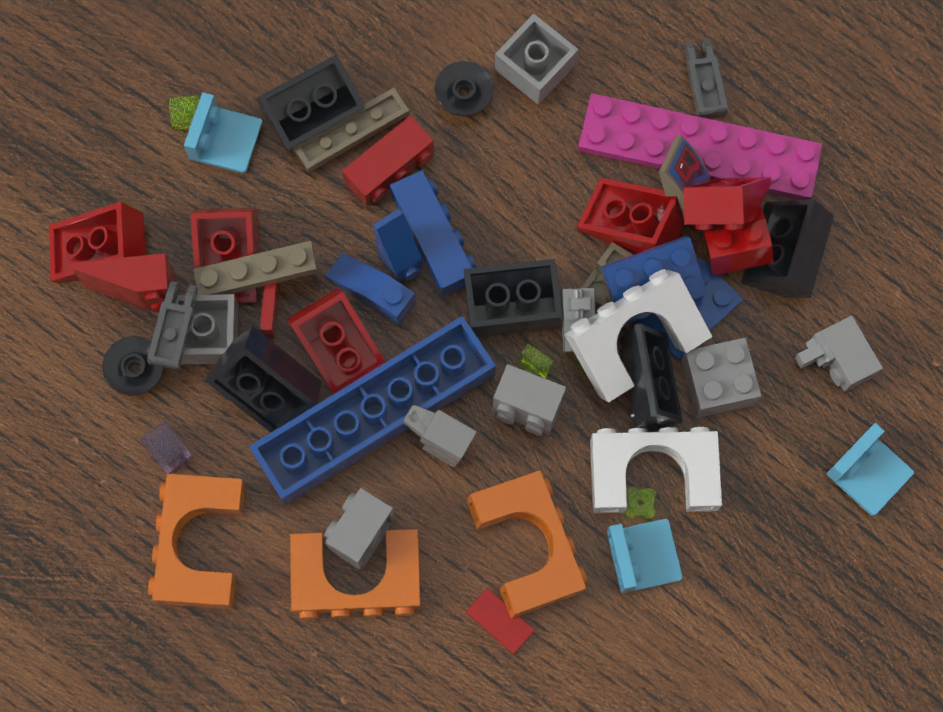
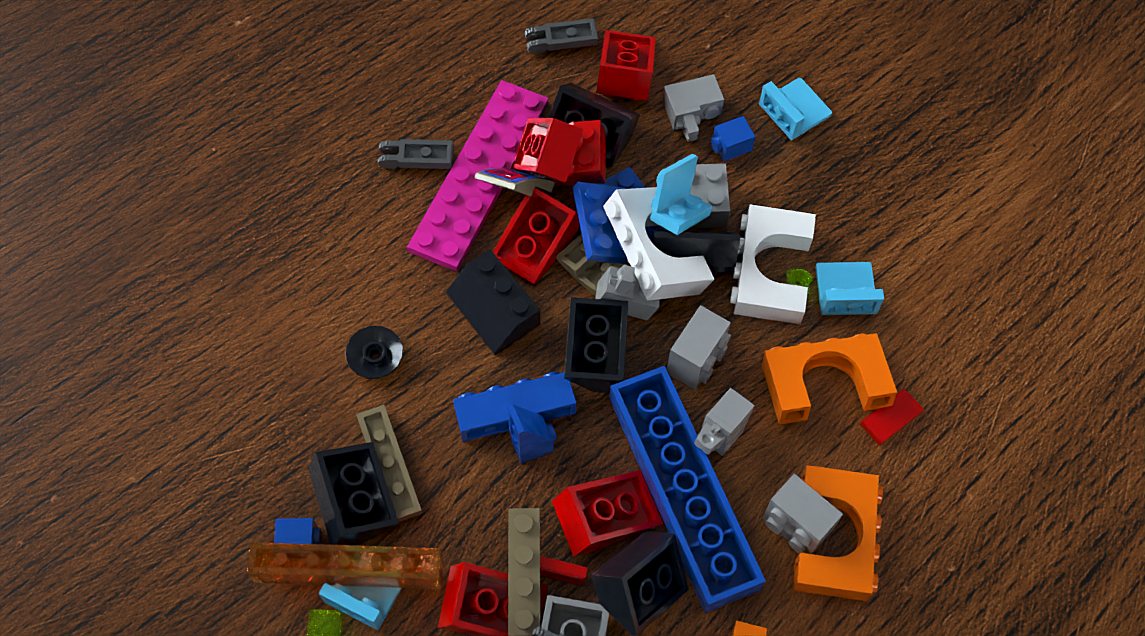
camera: 80 degrees left, 10 degrees down
(234, 112) = (345, 565): none -> clear orange brick
(262, 65) = (297, 531): none -> blue brick
(372, 288) = (558, 470): blue slope -> none
(389, 161) = (432, 432): red brick -> none
(535, 361) = (658, 339): clear neon green plate -> none
(536, 59) = (363, 282): light grey brick -> none
(545, 191) = (493, 302): none -> black slope
(684, 340) = (673, 204): none -> medium azure bracket
(806, 404) = (733, 139): none -> blue brick
(878, 272) = (626, 65): none -> red slope
(901, 199) = (562, 35): none -> dark grey hinge

